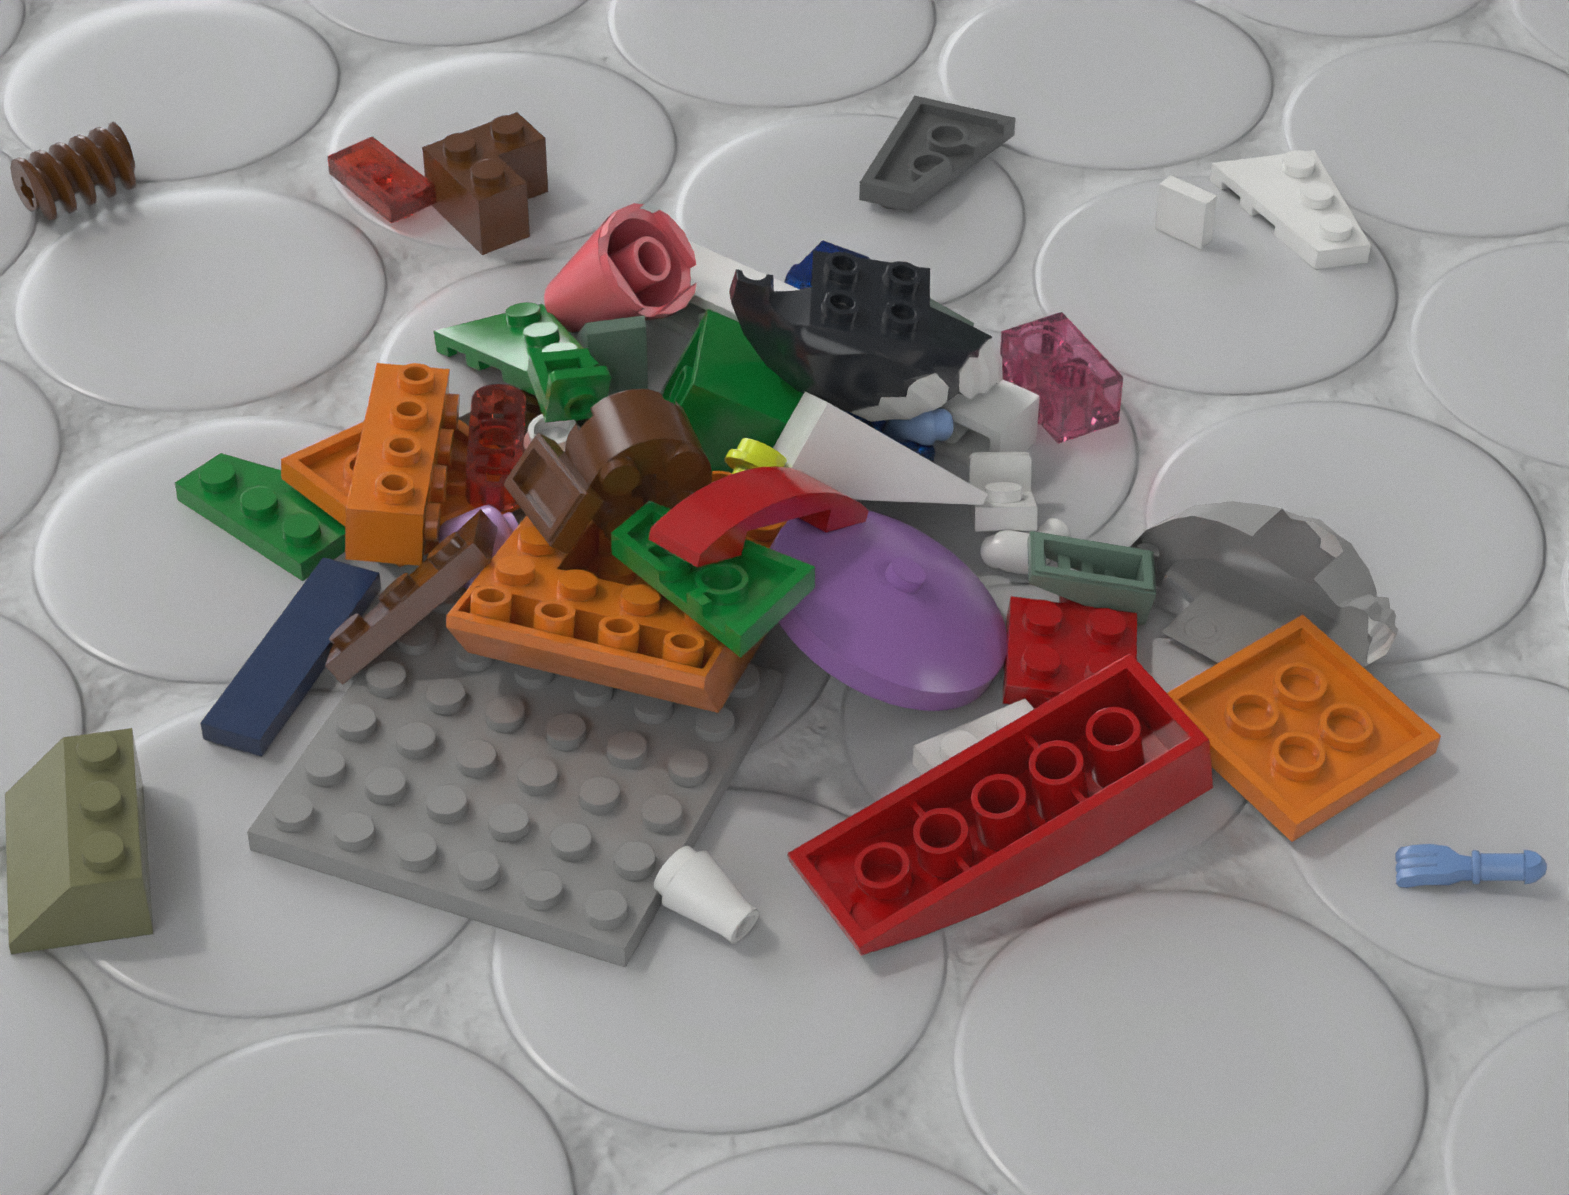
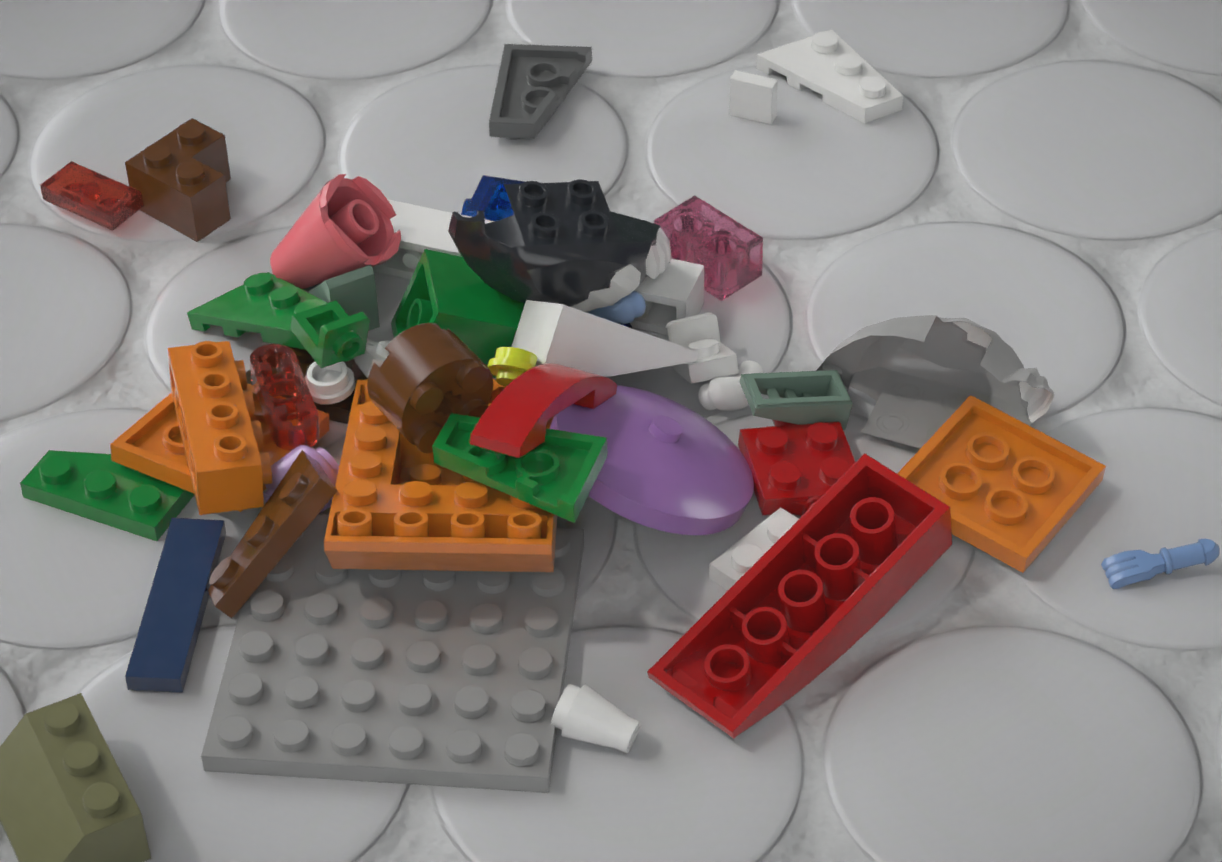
camera: 15 degrees left, 0 degrees up
(553, 493) = (369, 423): reddish brown tile -> none

